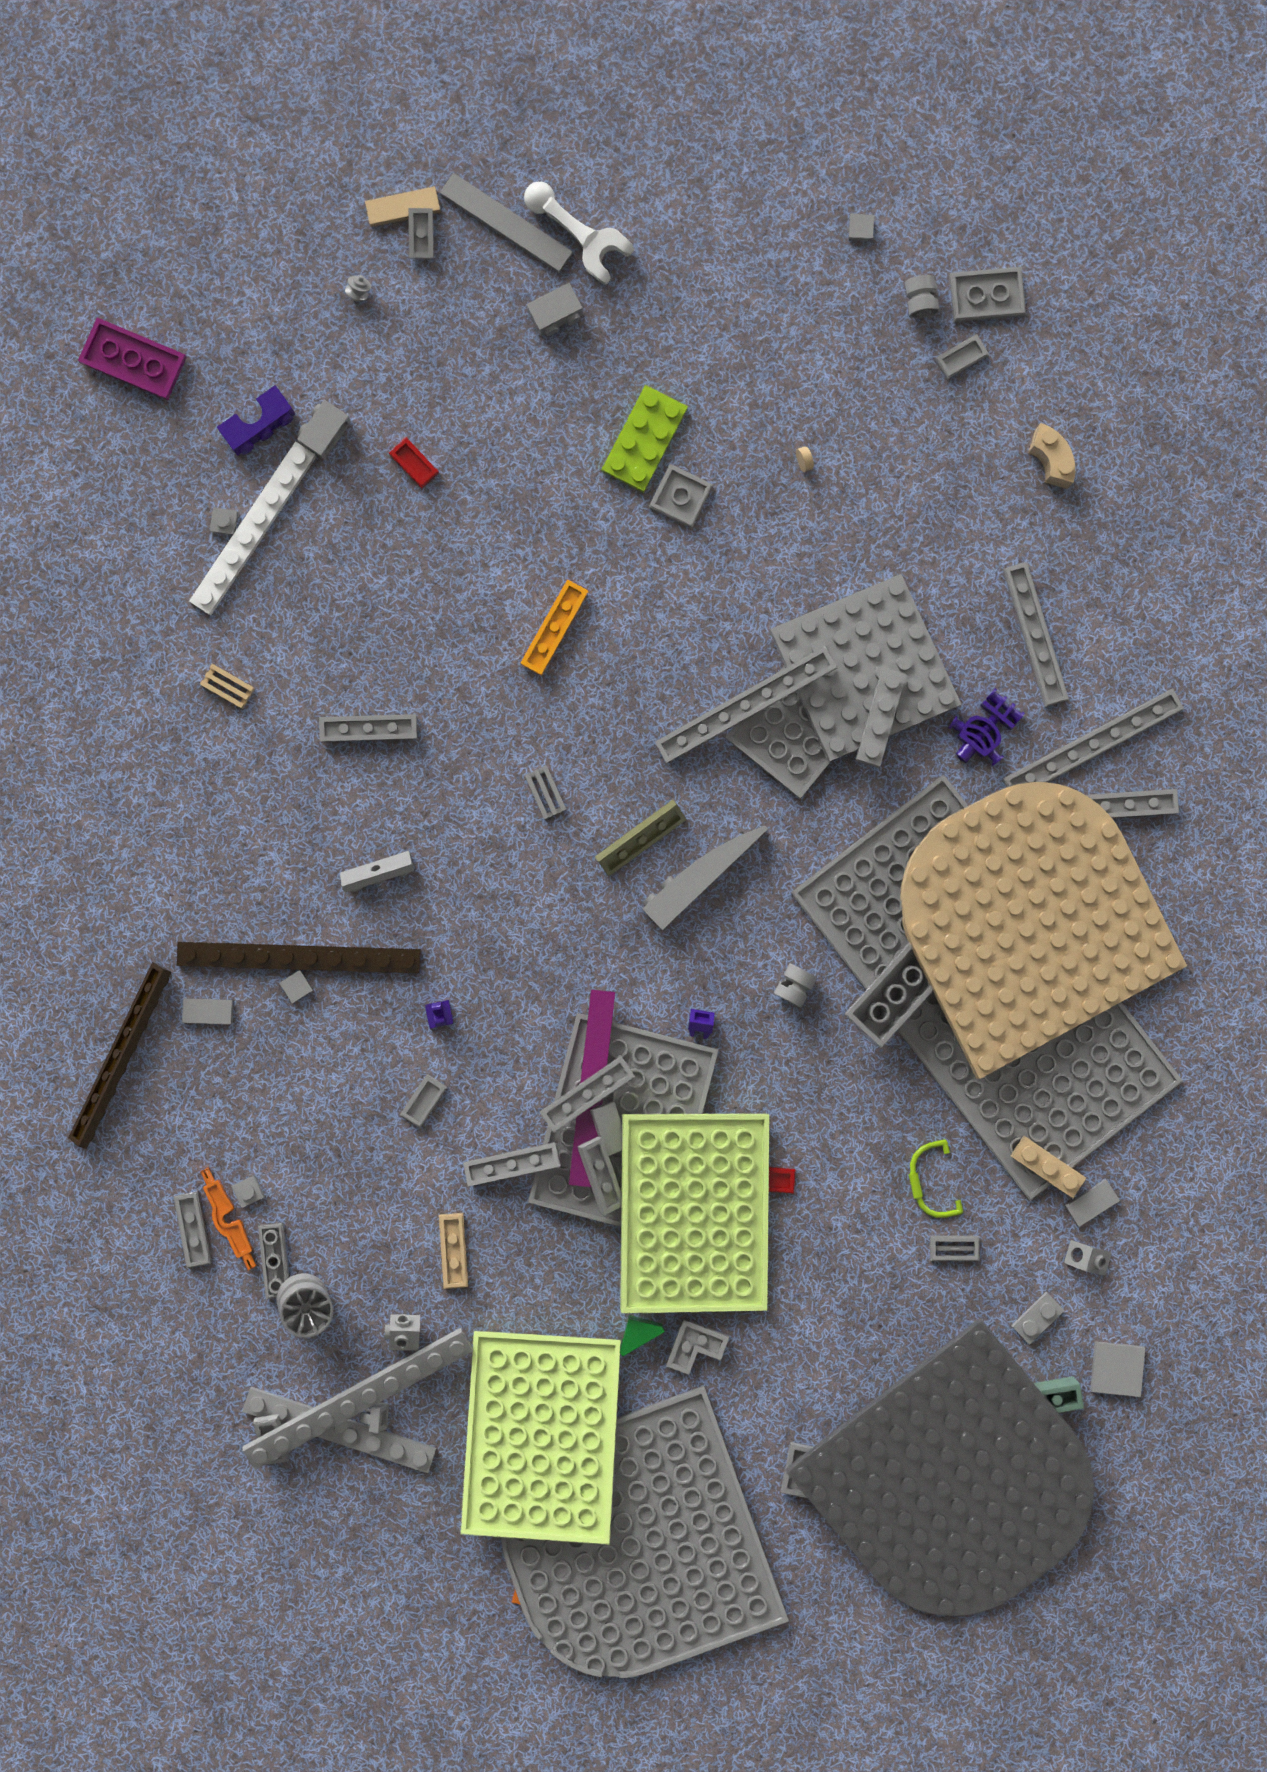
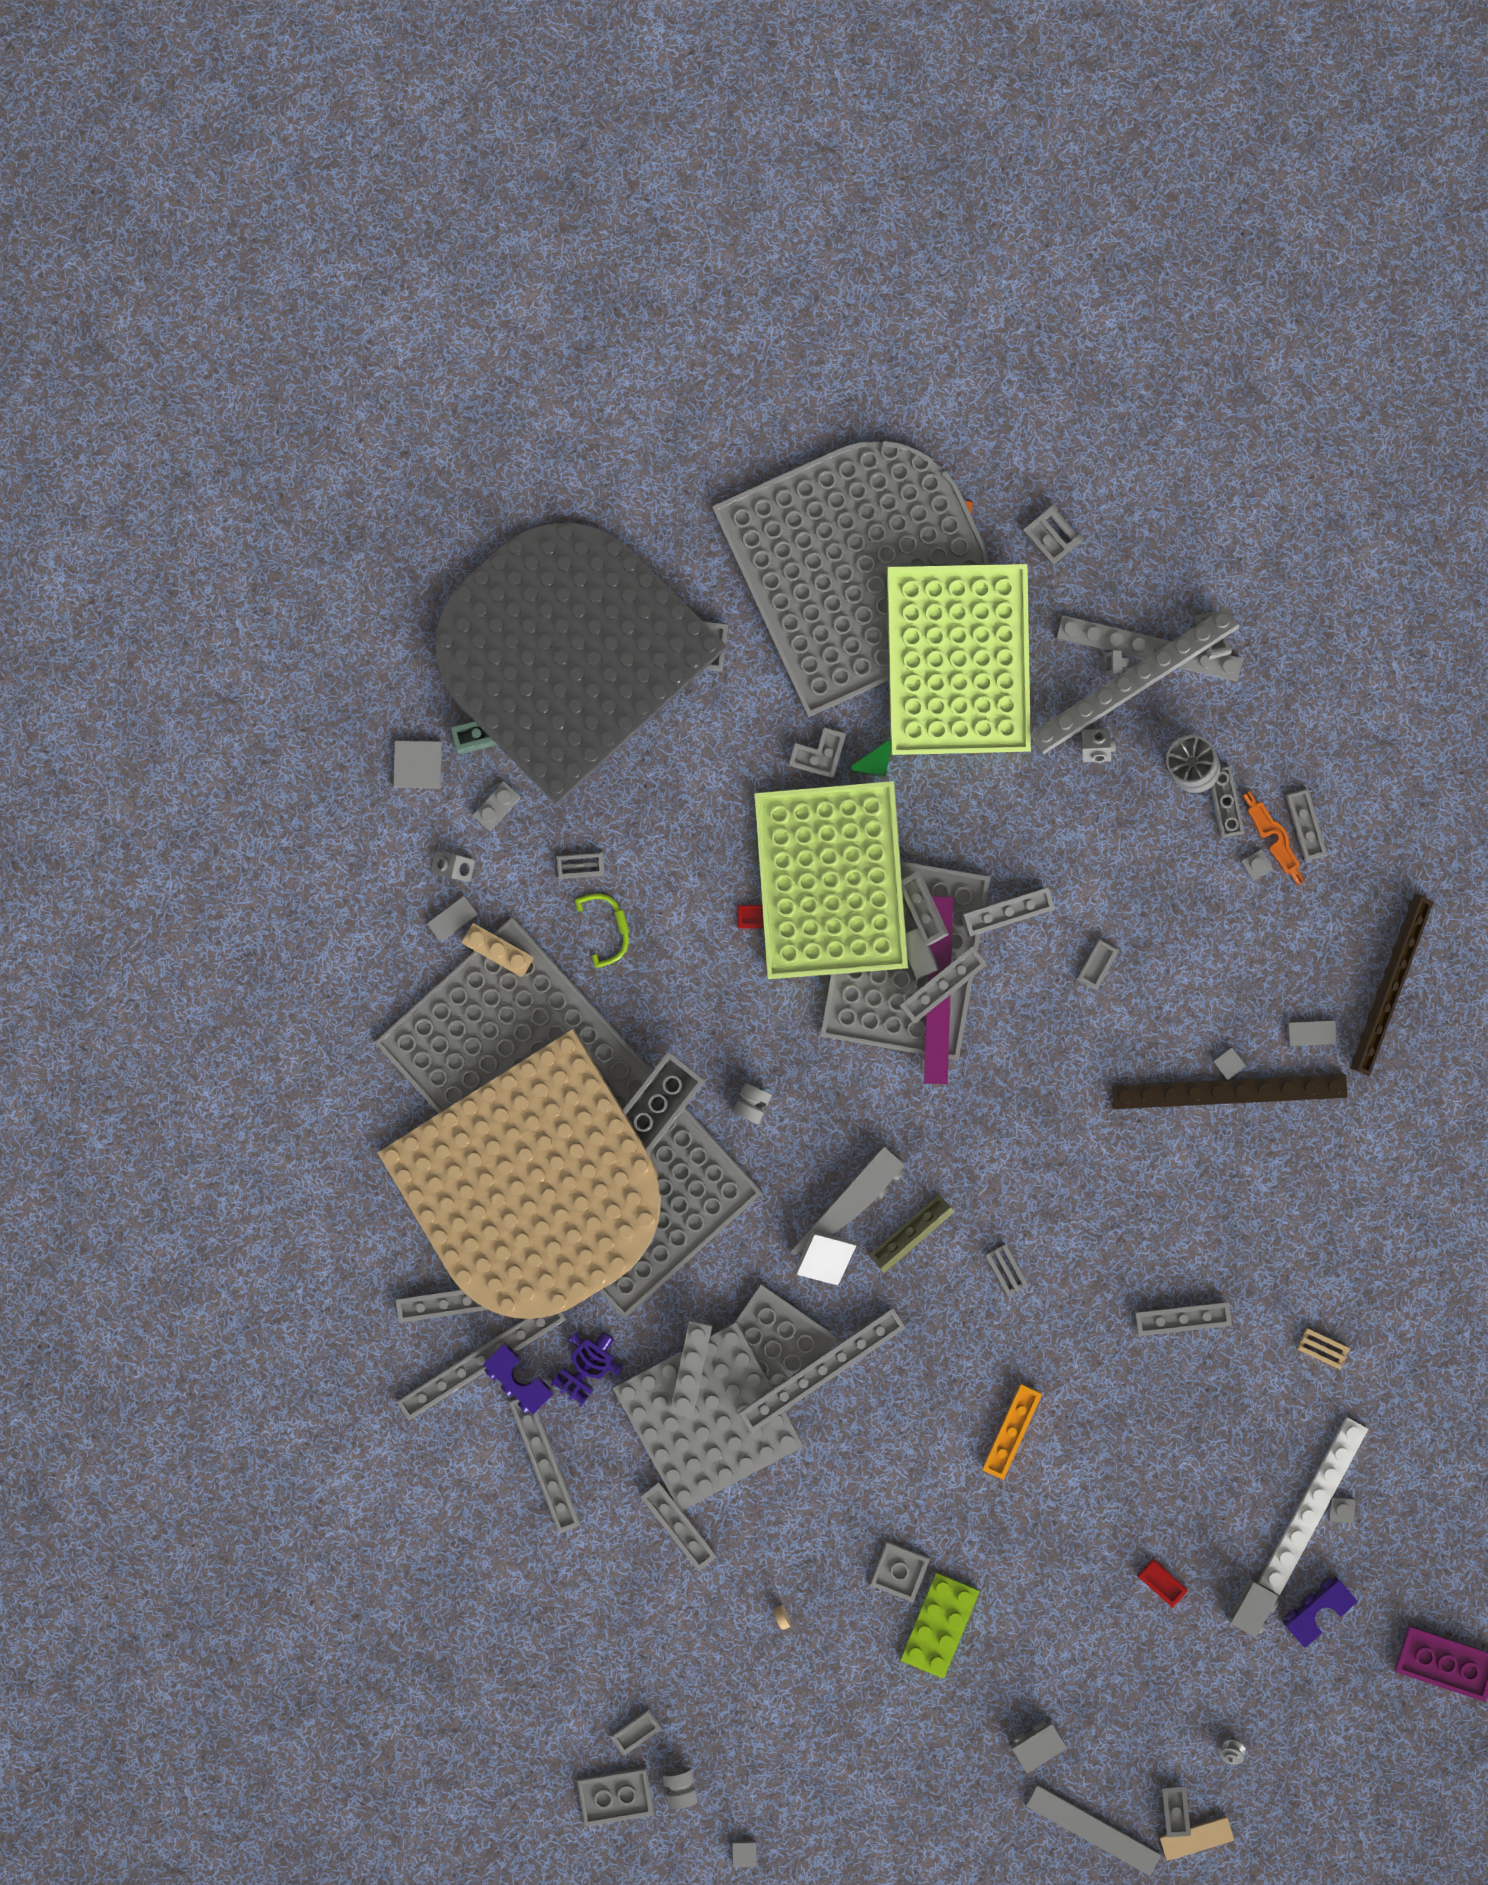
camera: 175 degrees right, 0 degrees up
(376, 872) = (1162, 1180): tile -> none
(435, 1554) = (1047, 539): none -> light grey plate
(439, 1014) = (1090, 1048): dark purple tile -> none
(453, 1250) = (1056, 824): tan tile -> none
(541, 199) = (1061, 1855): white piece -> none
(701, 1021) = (839, 1061): dark purple tile -> none
(732, 820) = (825, 1258): none -> tile
(903, 559) = (678, 1526): none -> light grey plate
(1054, 455) = (539, 1640): tan brick -> none
(1074, 734) = (530, 1395): none -> dark purple arch

